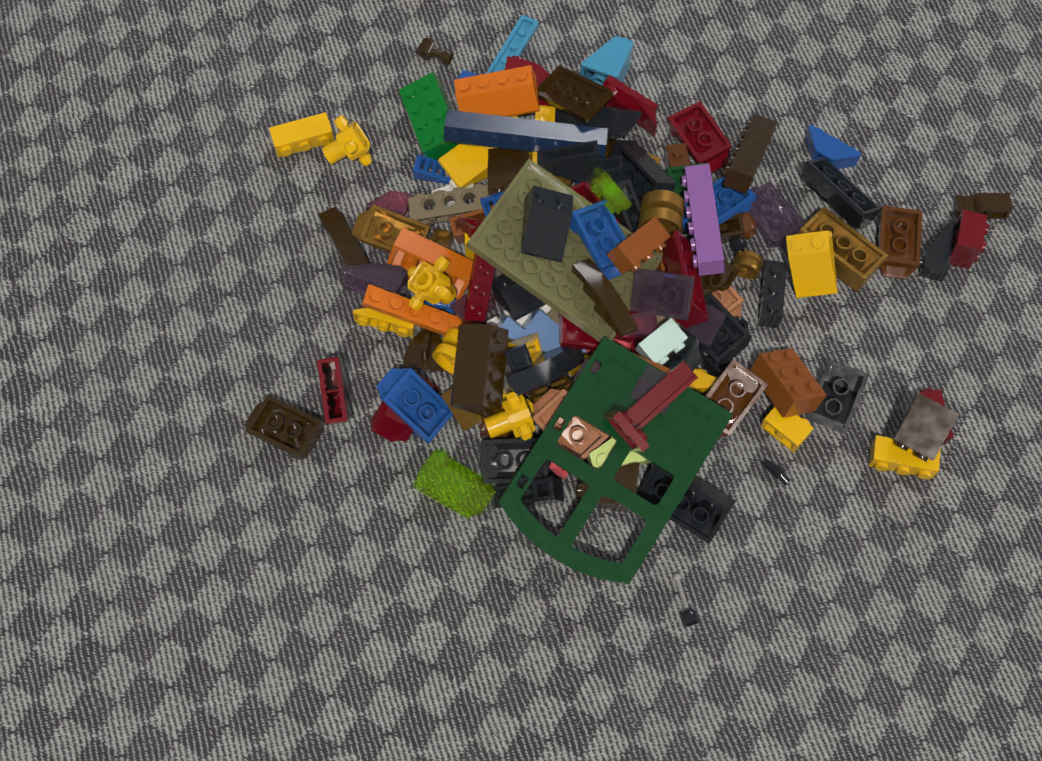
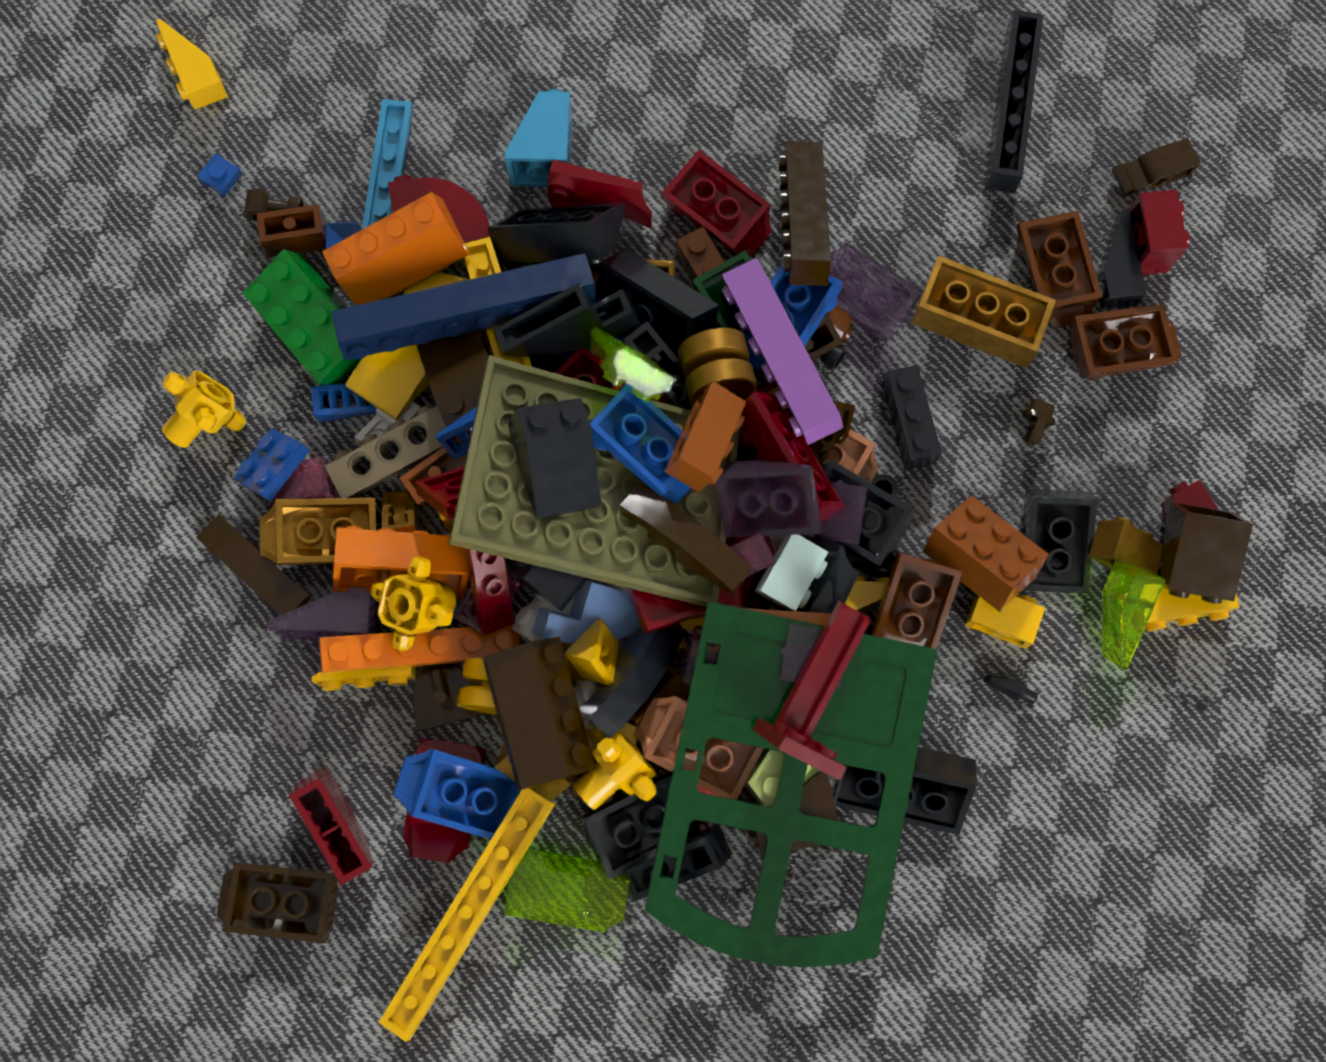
camera: 20 degrees left, 10 degrees up
(301, 135) = (121, 417): yellow brick -> none
(377, 187) = (271, 464): none -> blue plate
(391, 472) = (466, 913): none -> yellow plate
(410, 25) = (219, 174): none -> blue plate
(444, 65) = (292, 229): none -> reddish brown brick
(518, 357) = (591, 679): black tile -> none
(573, 93) = (512, 212): dark brown plate -> none
(689, 616) = (971, 957): hinge -> none
(748, 264) = (859, 385): pearl gold wheel -> none
(812, 263) = (954, 353): yellow slope -> none
(824, 145) = (910, 159): blue slope -> none
(840, 192) = (952, 222): black slope -> none
(854, 321) = (1039, 415): none -> dark brown piece
(865, 442) = (1126, 608): none -> clear neon green slope
(878, 413) = (1126, 544): none -> pearl gold brick
(906, 138) = (1014, 102): none -> black brick
(924, 296) = (1123, 341): none -> reddish brown slope

